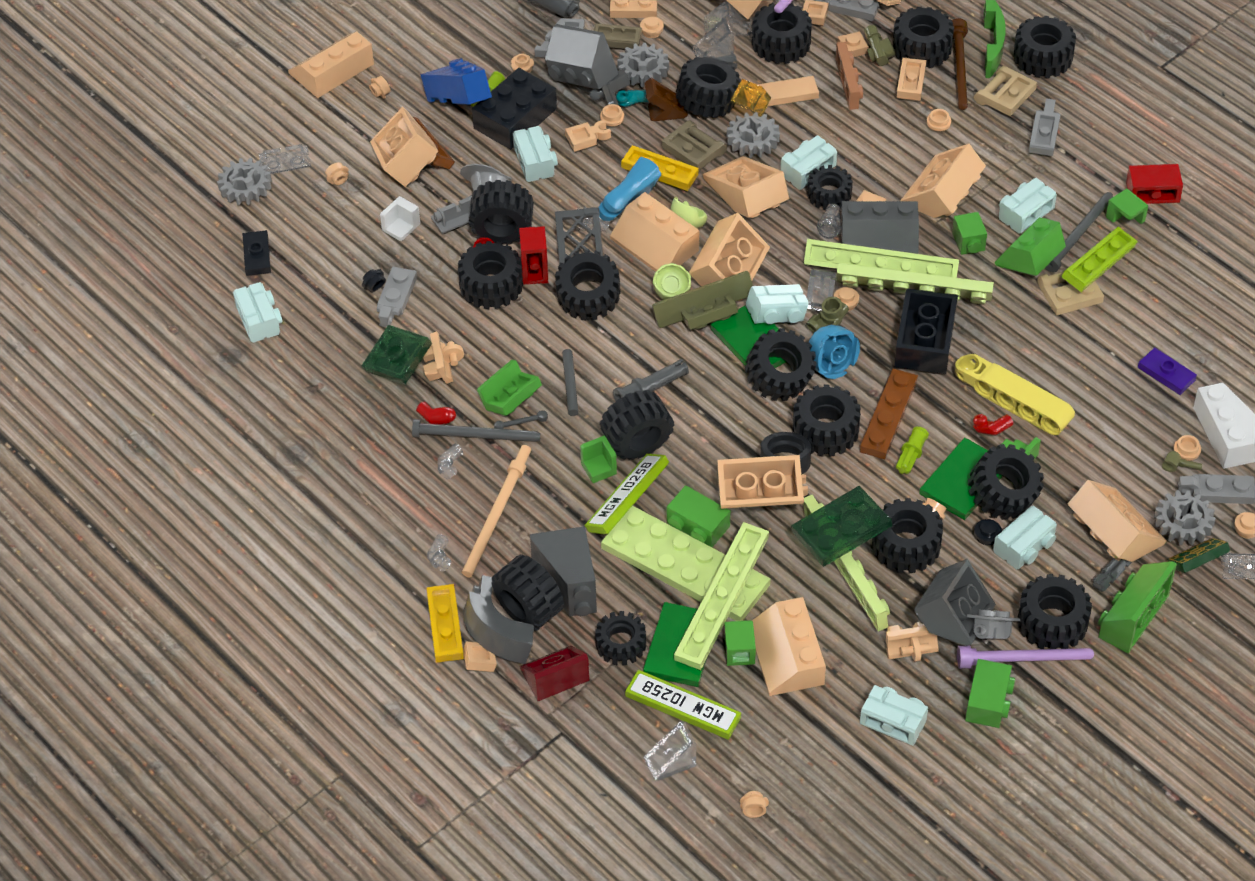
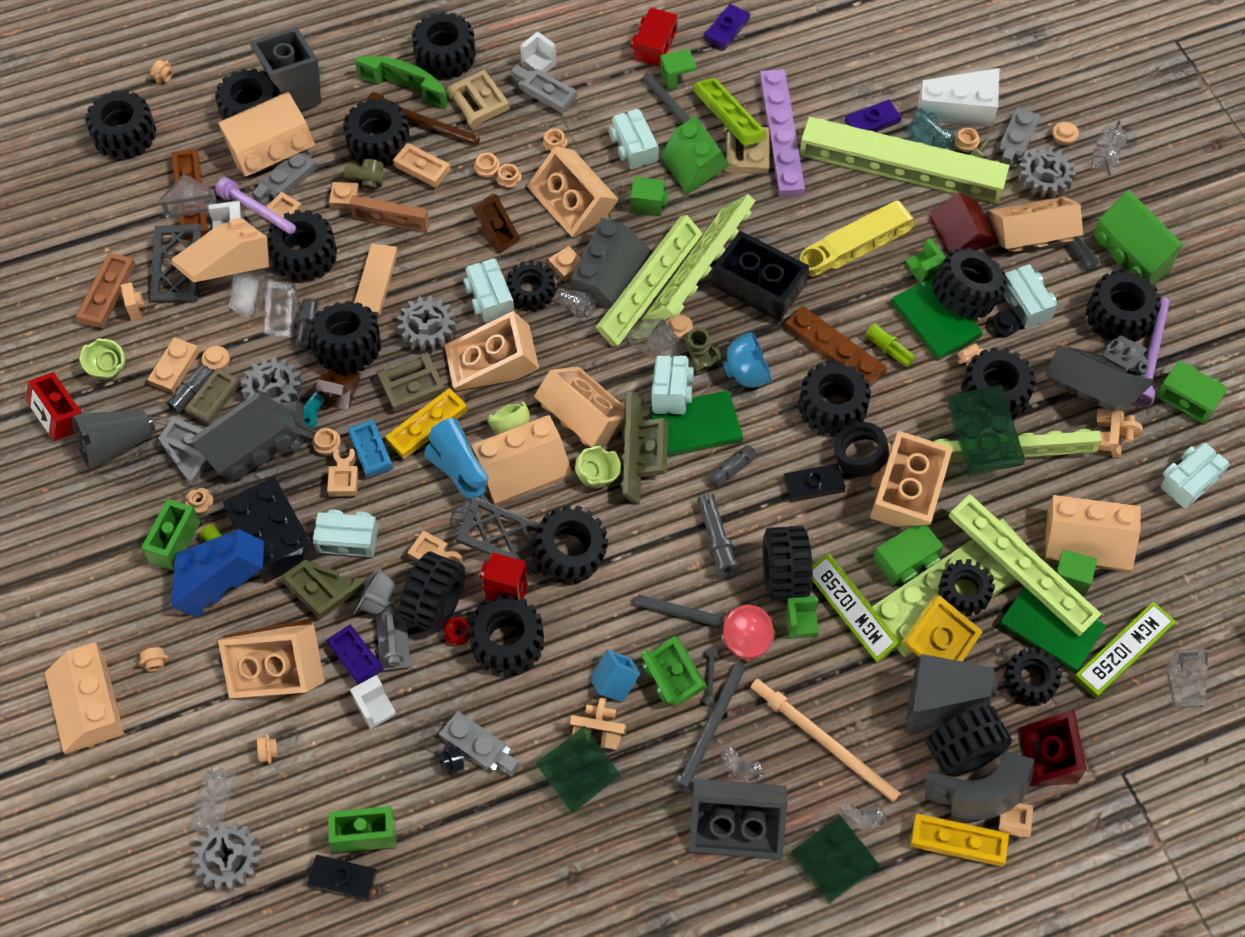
camera: 70 degrees left, 10 degrees up
(257, 312) = (441, 903): light aqua brick -> none
(293, 244) = (362, 829): none -> bright green brick
(394, 546) = (835, 859): none -> clear green plate
(400, 468) = (738, 818): none -> dark grey slope
(435, 195) = (354, 654): none -> dark purple plate
(437, 415) = (674, 757): red arm -> none
(481, 149) = (320, 587): none -> olive wing
(483, 50) = (170, 533): none -> bright green brick
(489, 354) = (615, 676): none -> dark azure panel
(544, 210) = (428, 542): none -> light nougat plate
(568, 427) = (748, 632): none -> coral hair
(615, 19) = (189, 389): none -> dark grey axle
(618, 142) = (370, 448): none -> dark azure plate
(624, 557) = (942, 632): none -> yellow plate
(675, 571) = (972, 573): none -> black tyre
(725, 375) = (732, 466): none -> dark grey axle
(738, 435) = (814, 482): none -> black plate
(751, 97) = (383, 303): clear yellow panel -> none
(791, 349) = (738, 412): black tyre -> none
(876, 142) = (495, 223): none -> reddish brown slope
(936, 137) = (505, 171): none -> light nougat plate
(983, 426) = (885, 273): red arm -> none
(993, 154) = (552, 136): none -> light nougat plate
(1077, 111) = (538, 53): none -> white panel
(1082, 464) = (963, 224): none -> dark red slope
(1107, 309) = (782, 133): none -> lavender plate
(1129, 405) = (904, 160): none -> yellowish green brick
(1171, 411) = (928, 131): none -> clear light blue hips
(1200, 554) = (1090, 180): dark green tile -> none
(1206, 233) = (727, 27): none -> dark purple plate

